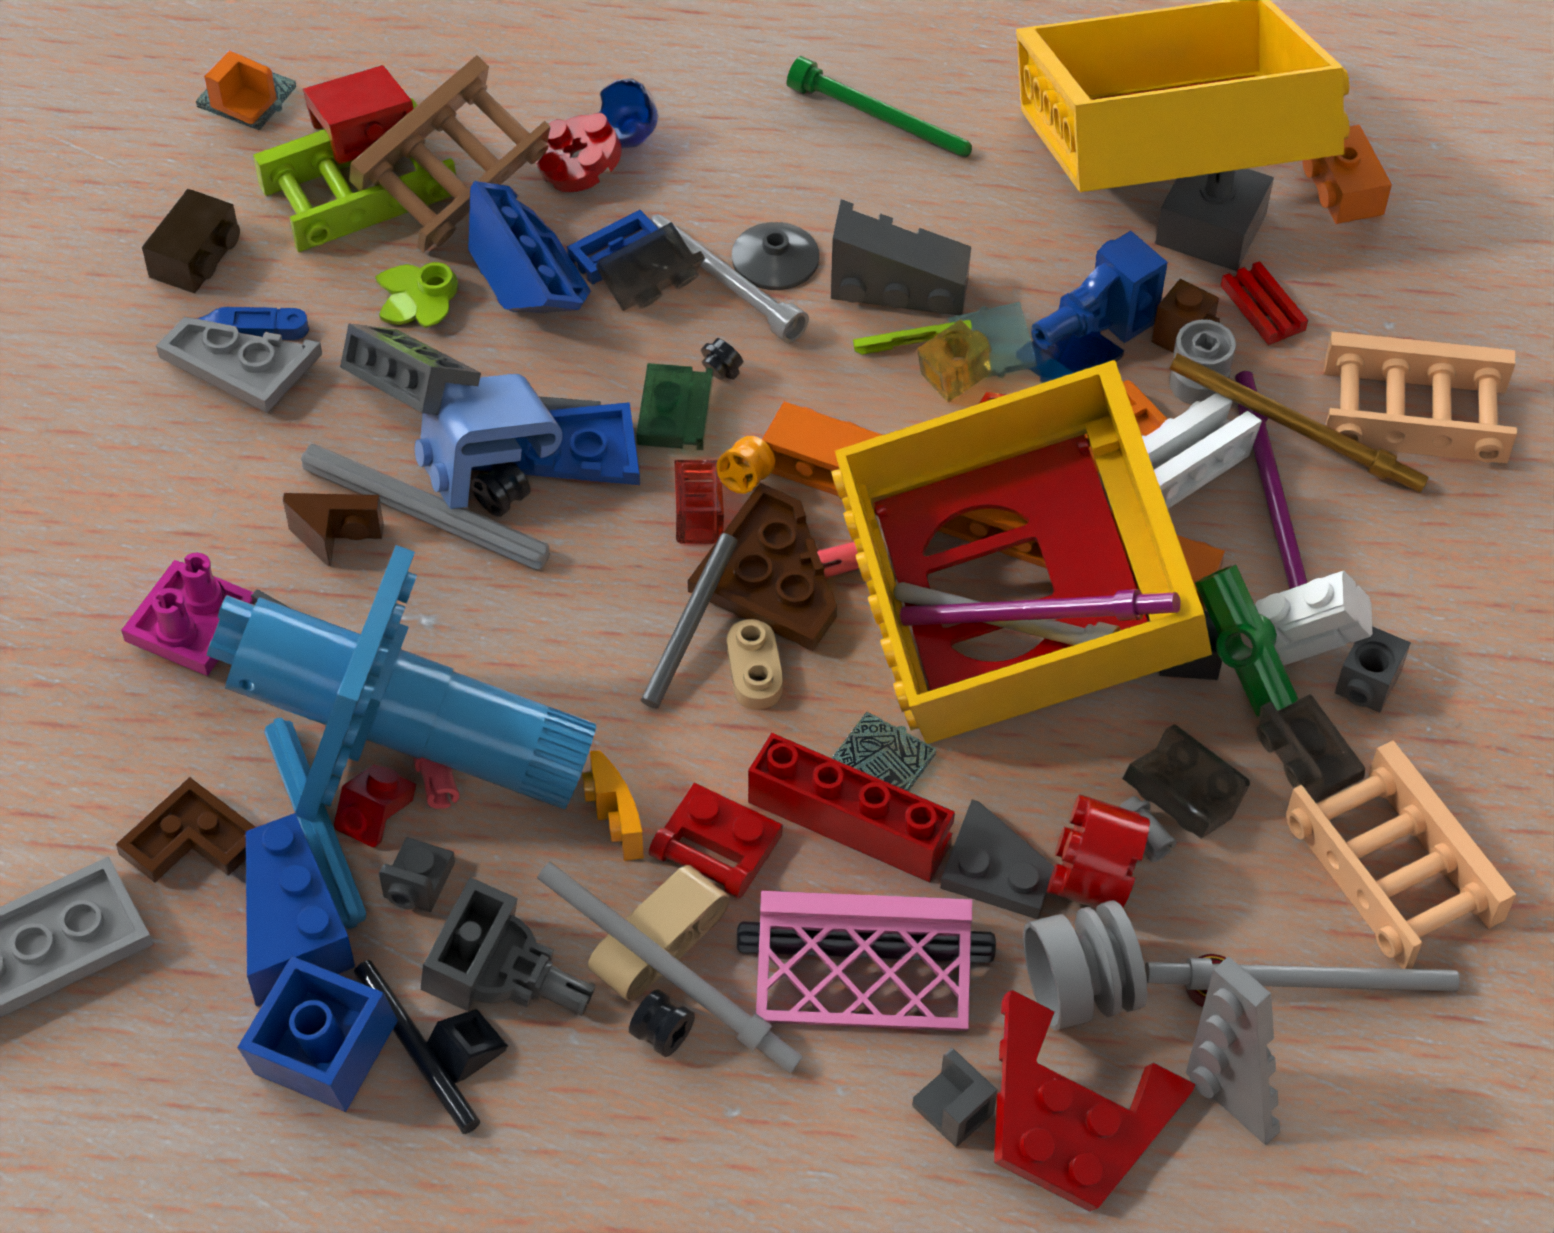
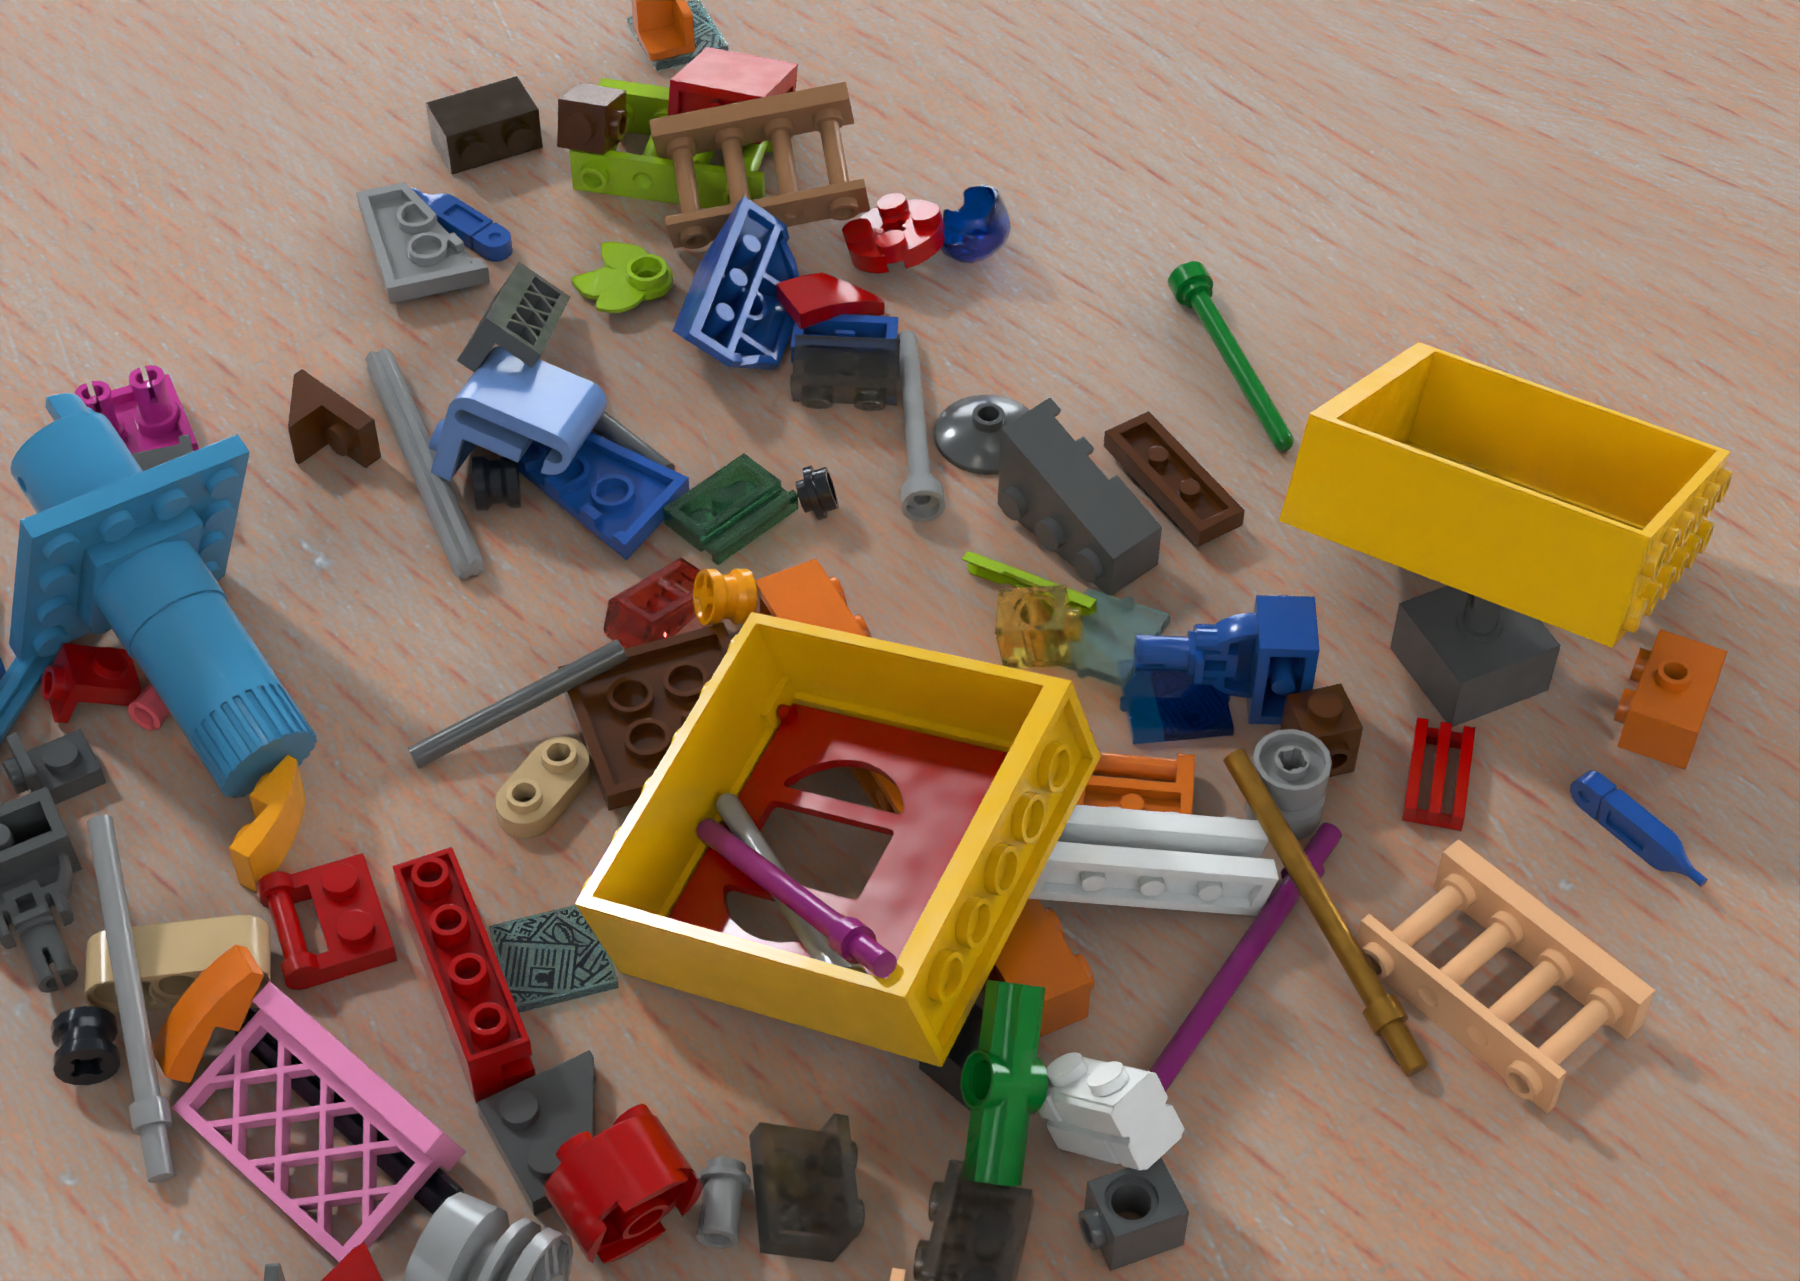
camera: 40 degrees right, 5 degrees down
(294, 187) = (591, 118): none -> reddish brown brick
(577, 226) = (822, 297): none -> red slope
(725, 938) = (214, 999): none -> orange slope
(936, 212) = (1173, 478): none -> reddish brown plate
(1395, 264) = (1632, 825): none -> blue piece

